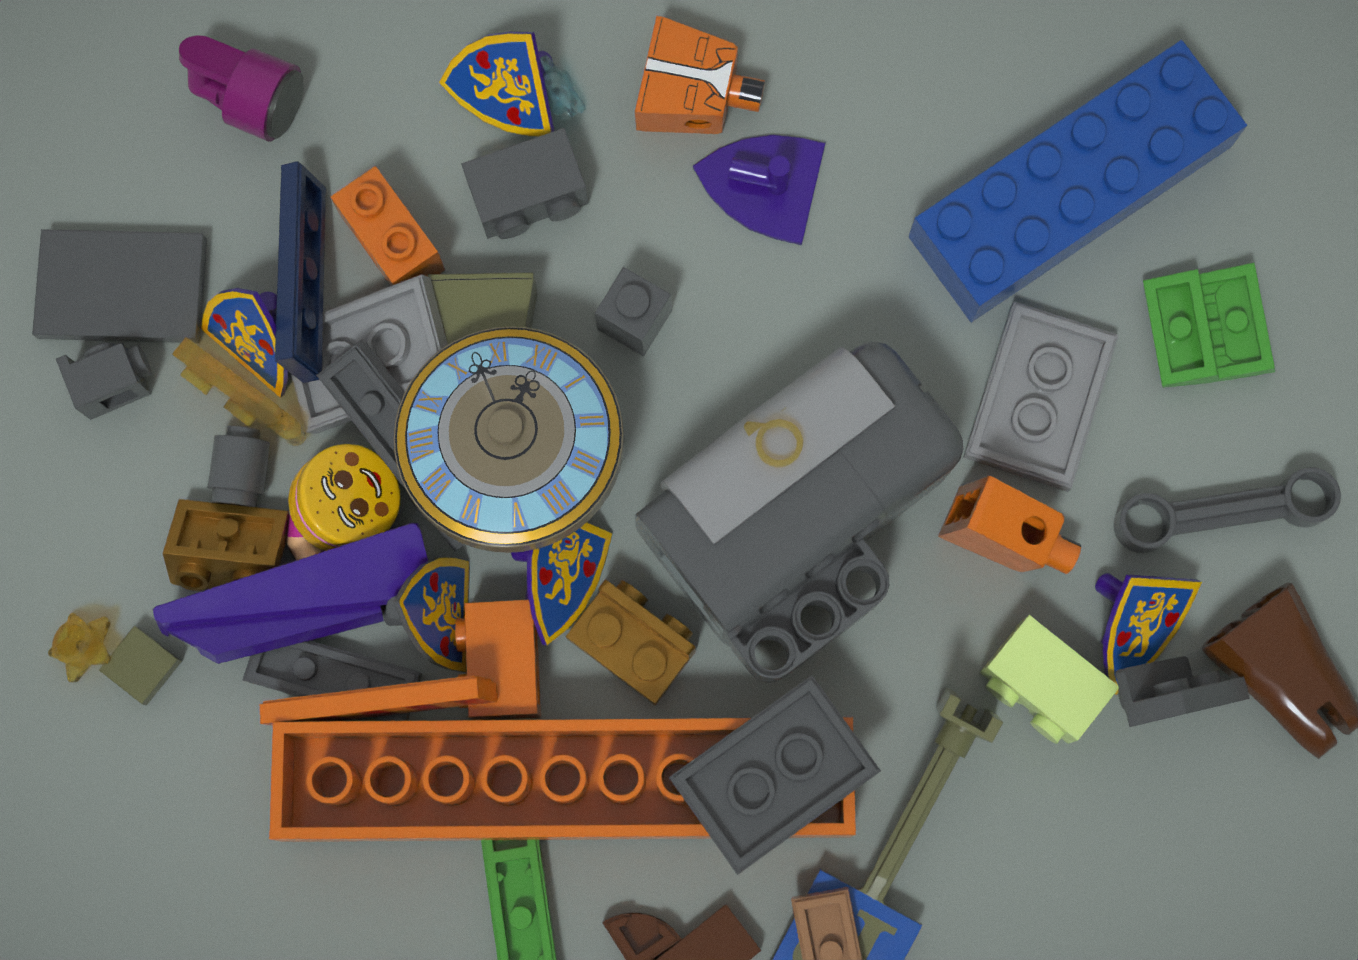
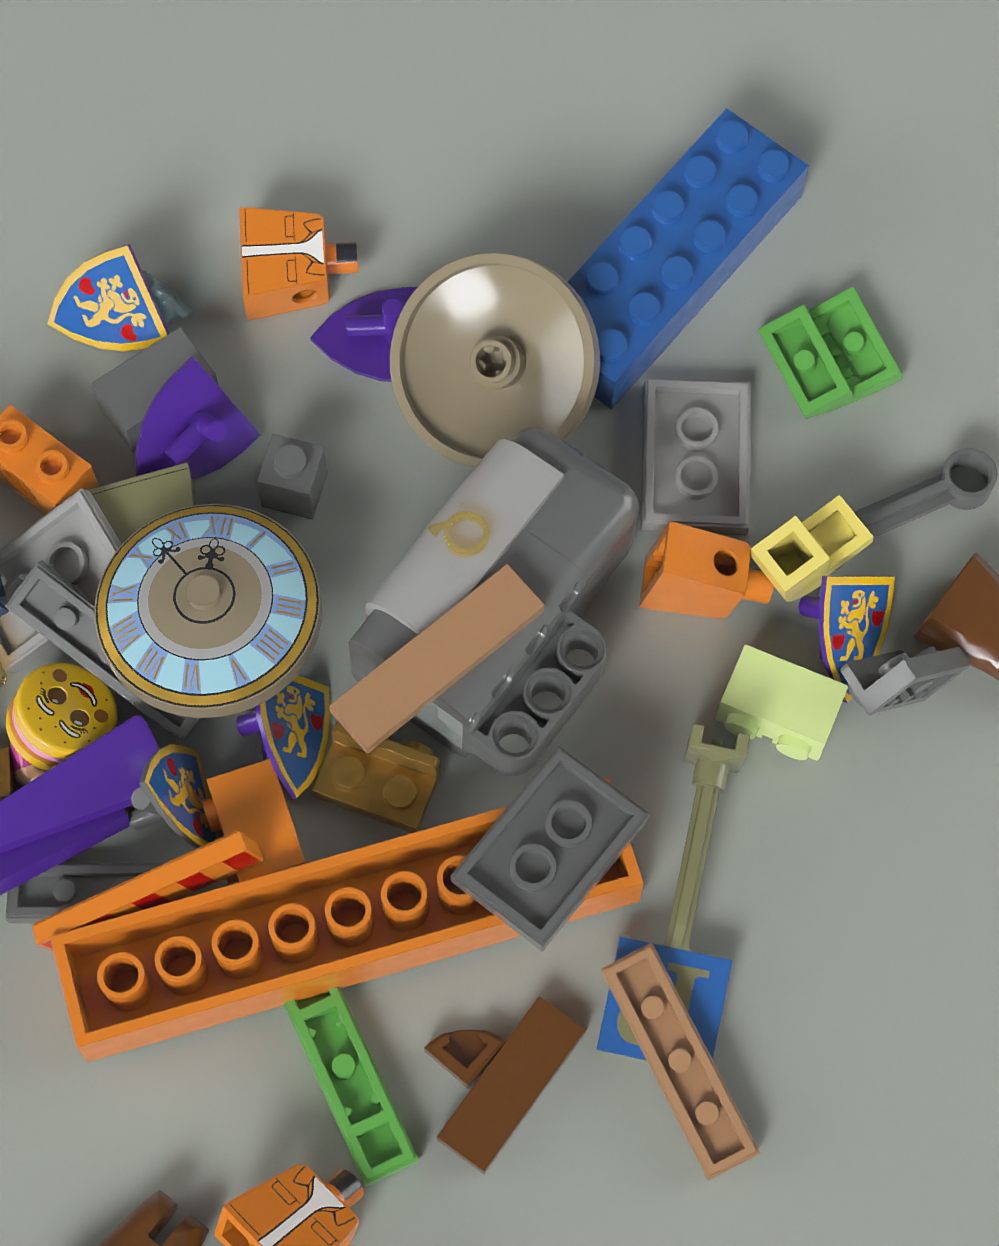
camera: 20 degrees left, 10 degrees down
(548, 233) = (192, 424): none -> dark purple shield
(714, 563) = (436, 658): none -> medium nougat tile
(866, 247) = (492, 353): none -> dark tan dish
(1126, 536) = (804, 552): none -> light yellow brick

